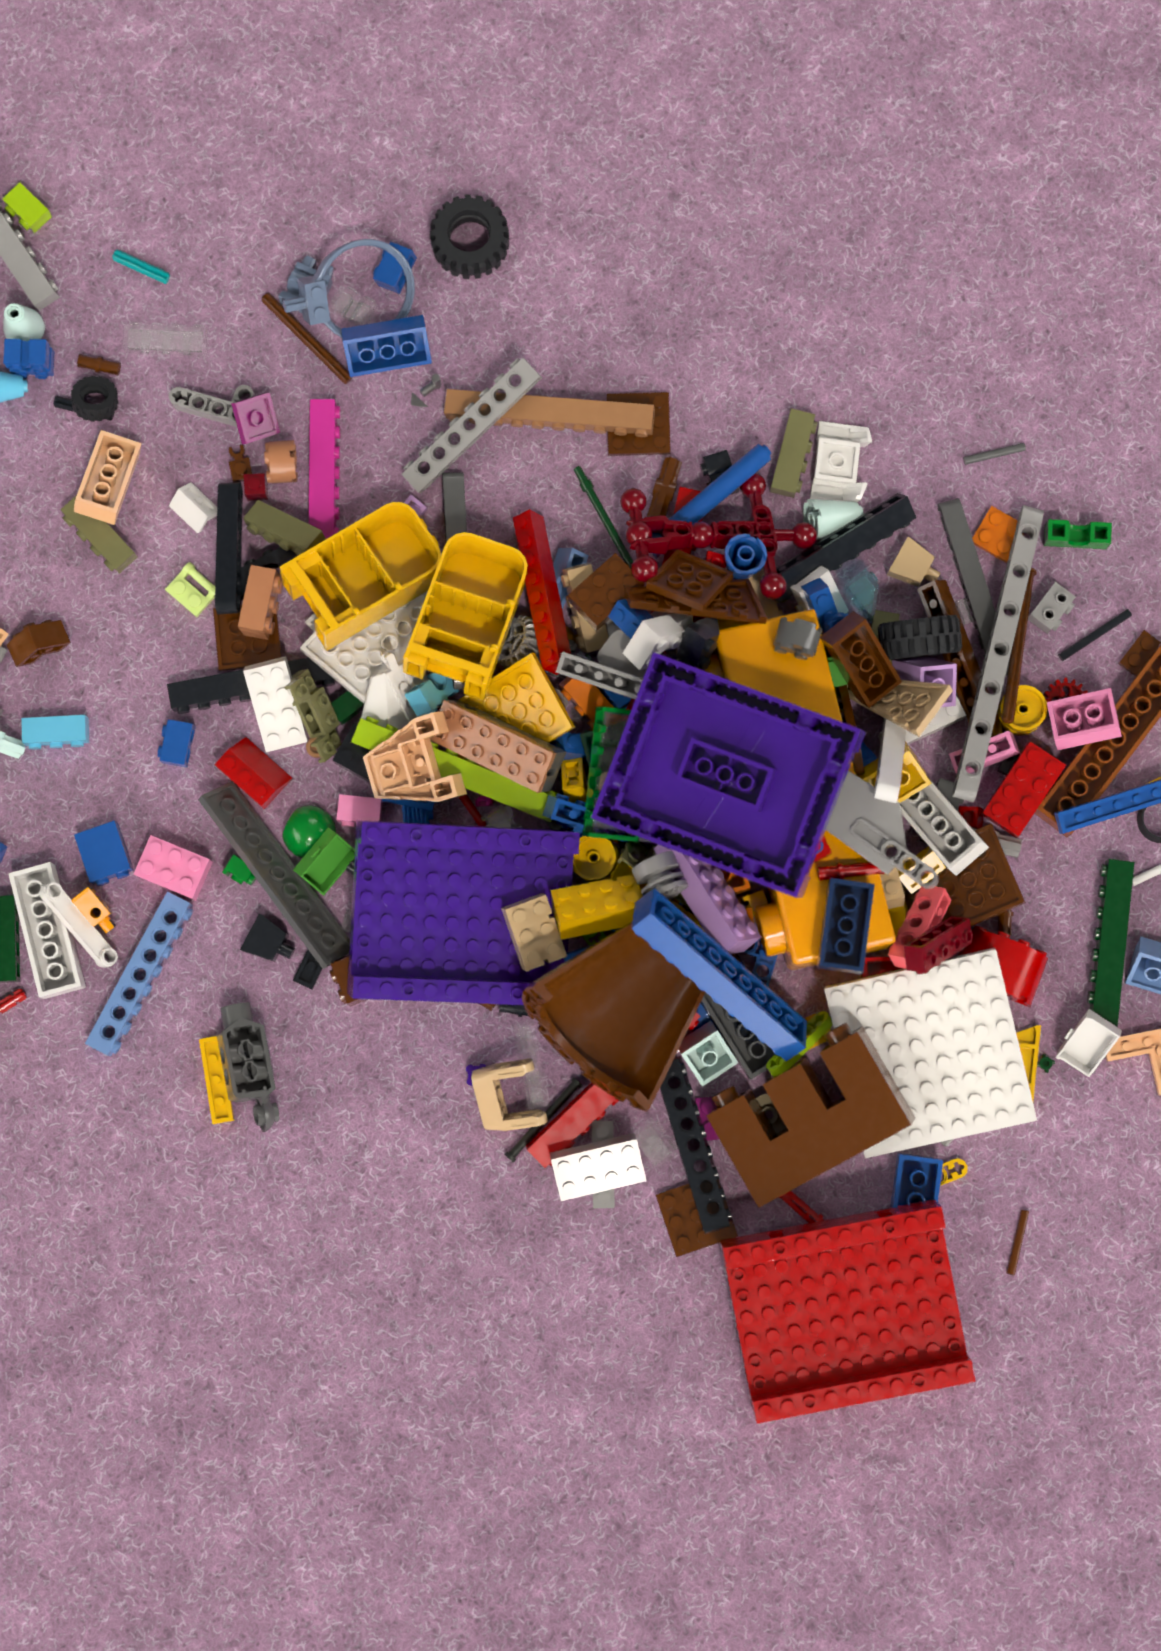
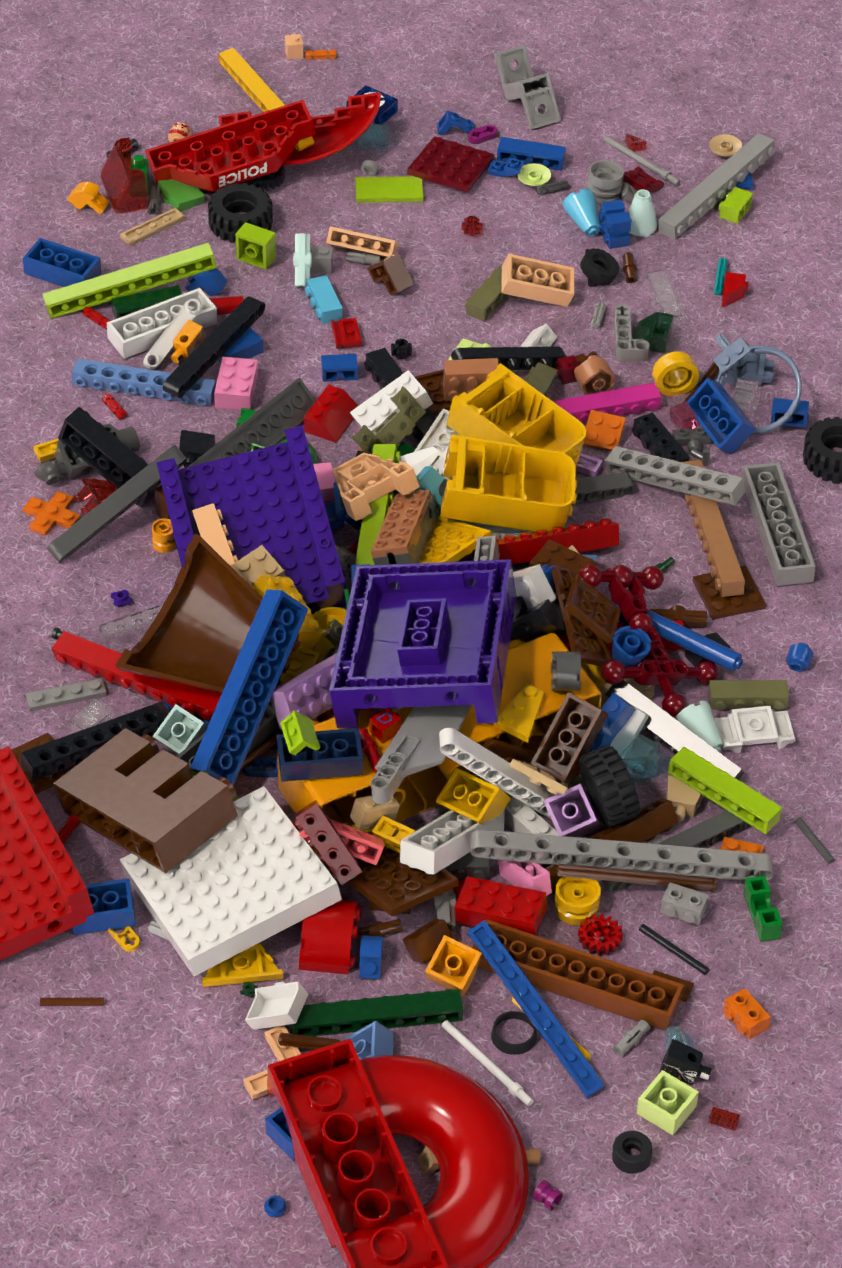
camera: 70 degrees right, 35 degrees down
(28, 846) = (226, 305): none -> red brick
(118, 720) = (346, 333): none -> red plate
(118, 880) = (213, 347): none -> black beam
(166, 1016) = (114, 406): none -> red axle
(167, 425) = (598, 315): none -> light grey axle
(168, 659) = (401, 349): none -> black gear
(169, 258) = (734, 288): none -> red slope
(221, 373) = (655, 330): none -> clear green slope
(255, 418) = (624, 354): plate -> none
(282, 1043) = (102, 450): none -> black brick
(304, 372) = (675, 373): none -> yellow piece
(310, 1059) = (99, 488): none -> clear red plate
(321, 1124) = (51, 513): none -> orange plate
(356, 1050) = (112, 507): none -> dark grey beam
(365, 385) = (683, 416): none -> clear pink brick
(365, 478) = (604, 430): none -> orange plate
(396, 385) = (691, 437): none -> dark grey plate
(400, 1010) = (163, 536): none -> light orange wheel
(401, 423) = (657, 438): none -> black brick
(471, 958) = (214, 533): none -> light nougat brick
(491, 1098) = (113, 596): tan connector -> none
(561, 339) = (778, 524): none -> light grey brick
(597, 1166) = (61, 676): brick -> none
(658, 874) = (321, 638): light grey wheel -> none
(754, 383) = (799, 657): none -> blue head
(827, 697) = (521, 713): none -> yellow wing
(831, 942) = (299, 732): none -> lime panel
(931, 521) = (725, 790): none -> lime brick
(1037, 871) = (425, 940): none -> reddish brown brick
(1039, 932) = (370, 956): none -> blue brick
(1082, 858) = (453, 965): none -> light orange slope
(1084, 719) = (583, 929): bright pink brick -> none
(1132, 1021) = (304, 1041): none -> reddish brown axle

